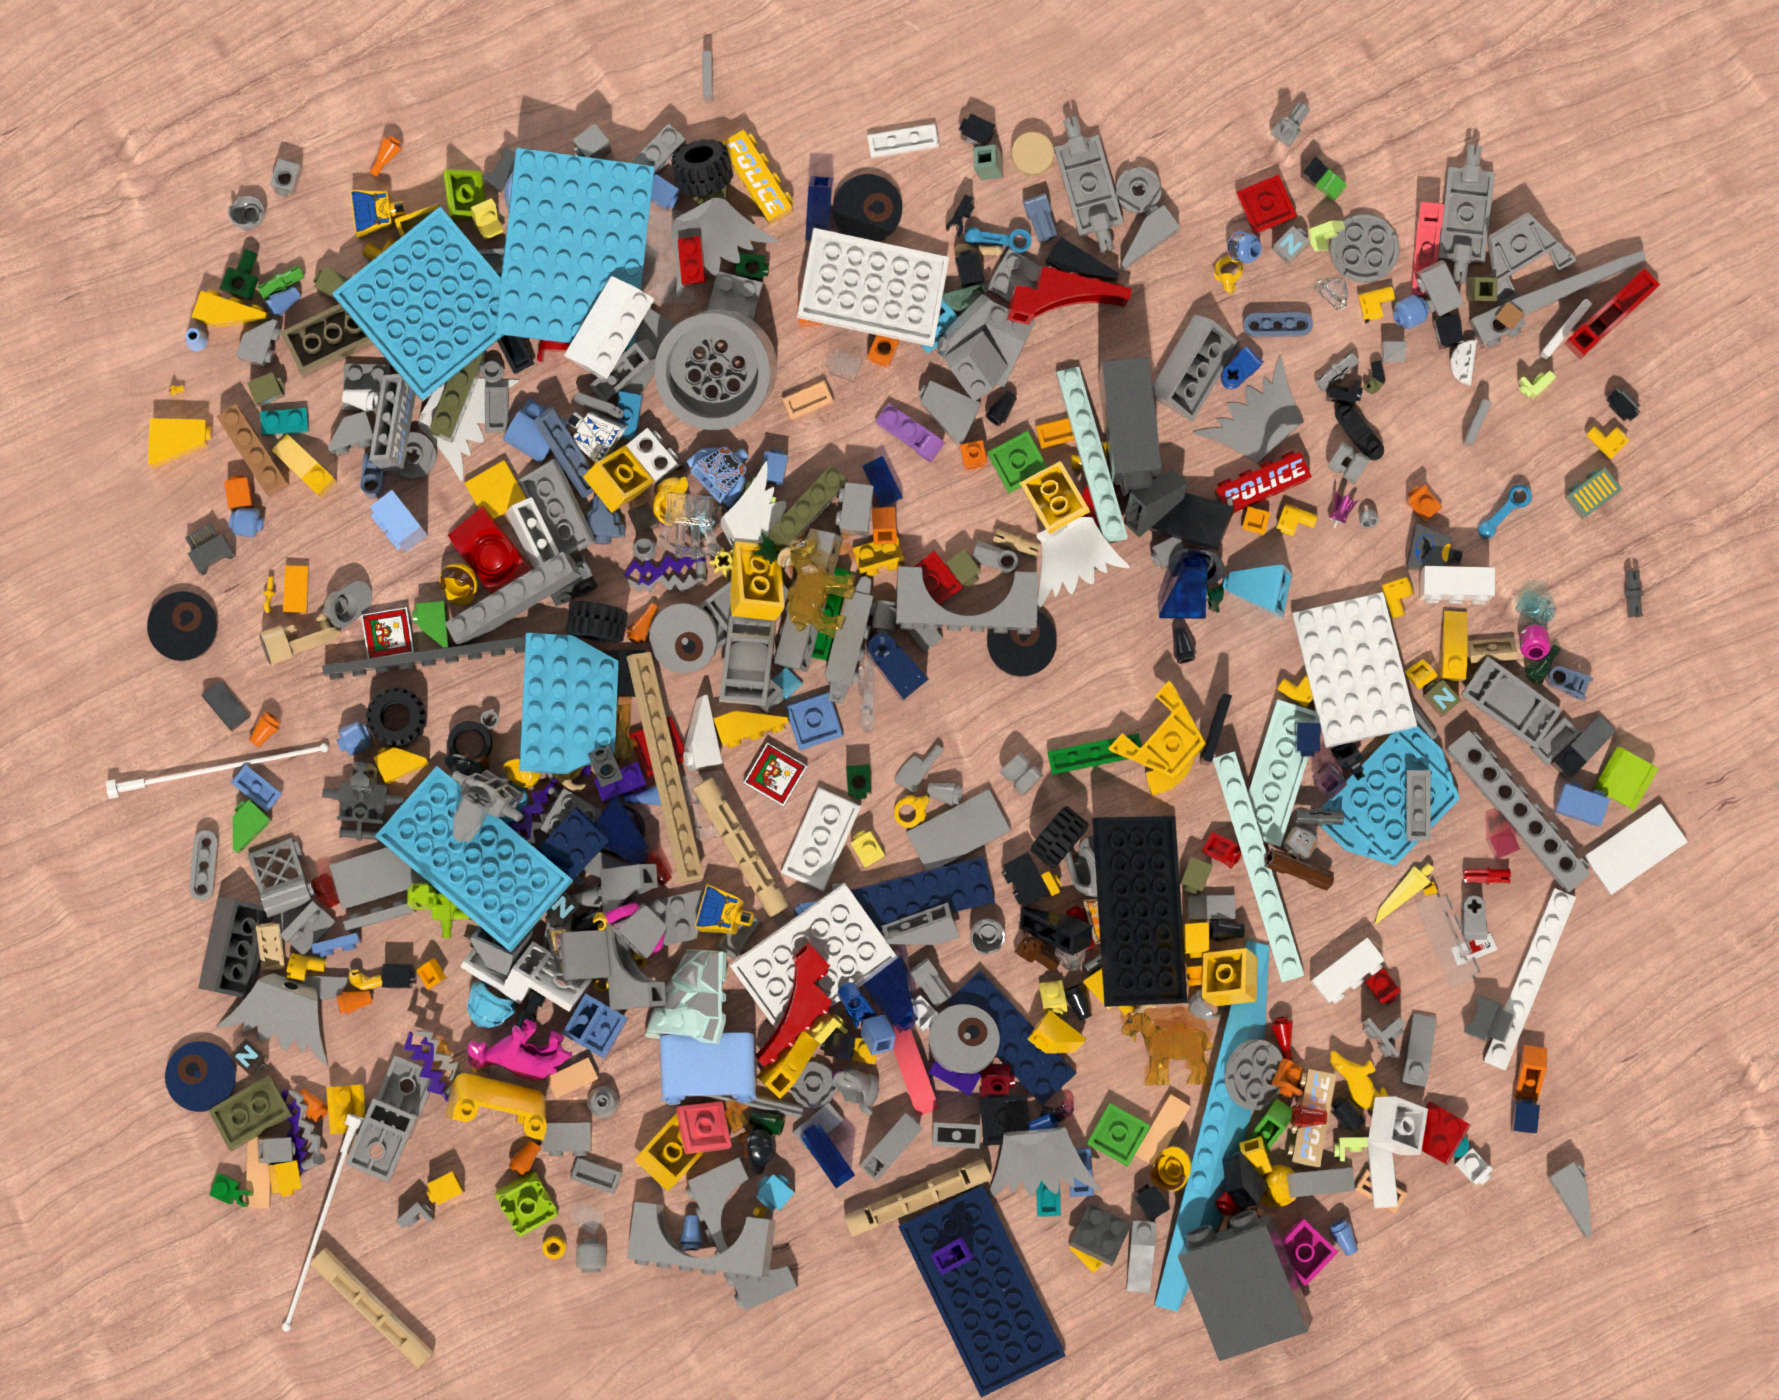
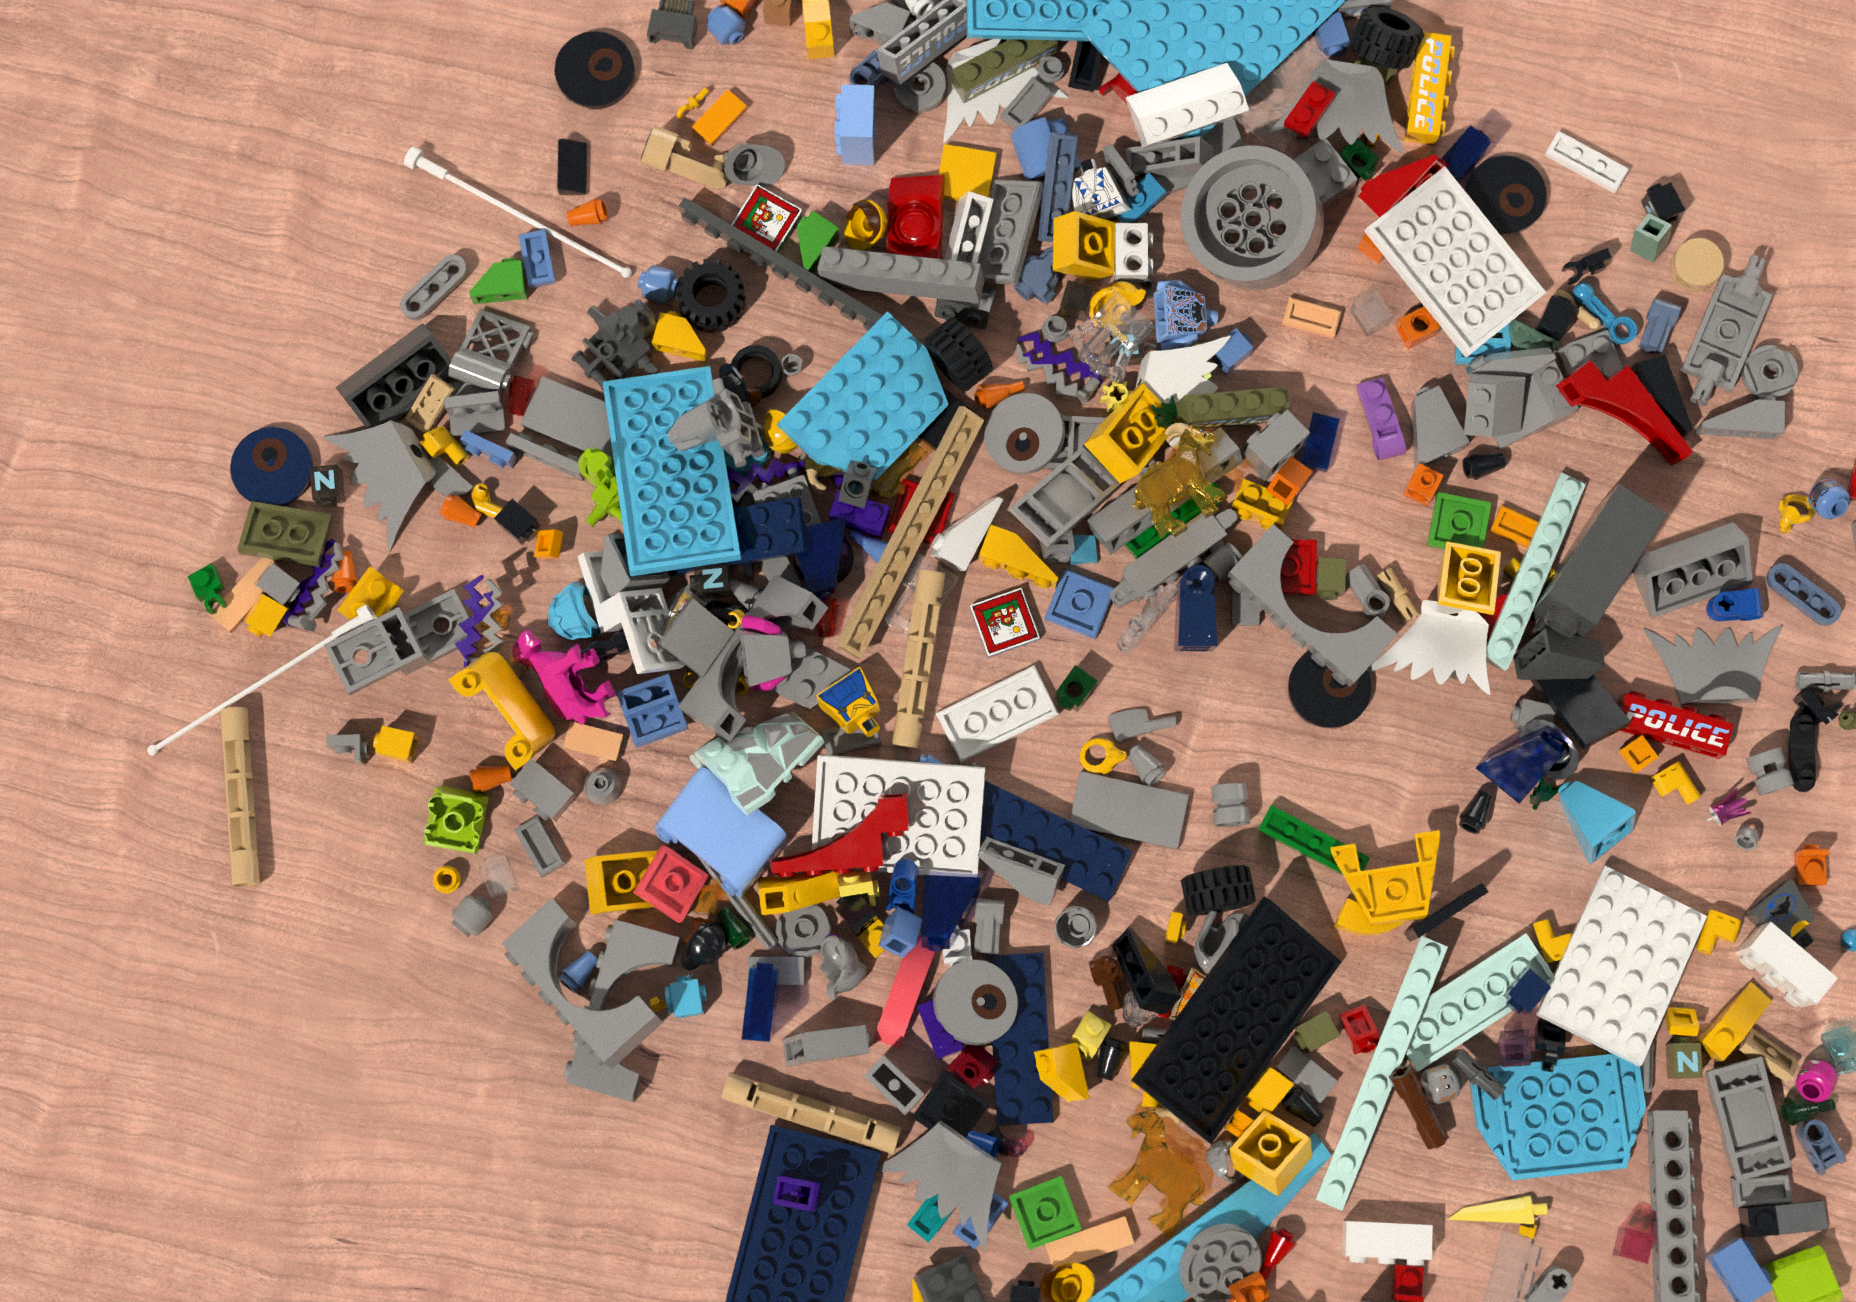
camera: 40 degrees right, 5 degrees down
(790, 276) = (1393, 186): none -> red slope
(867, 848) = (1032, 756): light yellow bracket -> none
(1025, 879) = (1154, 904): black brick -> none
(1418, 805) = (1581, 1141): light grey plate -> none
(1487, 875) = (1593, 1263): red axle -> none

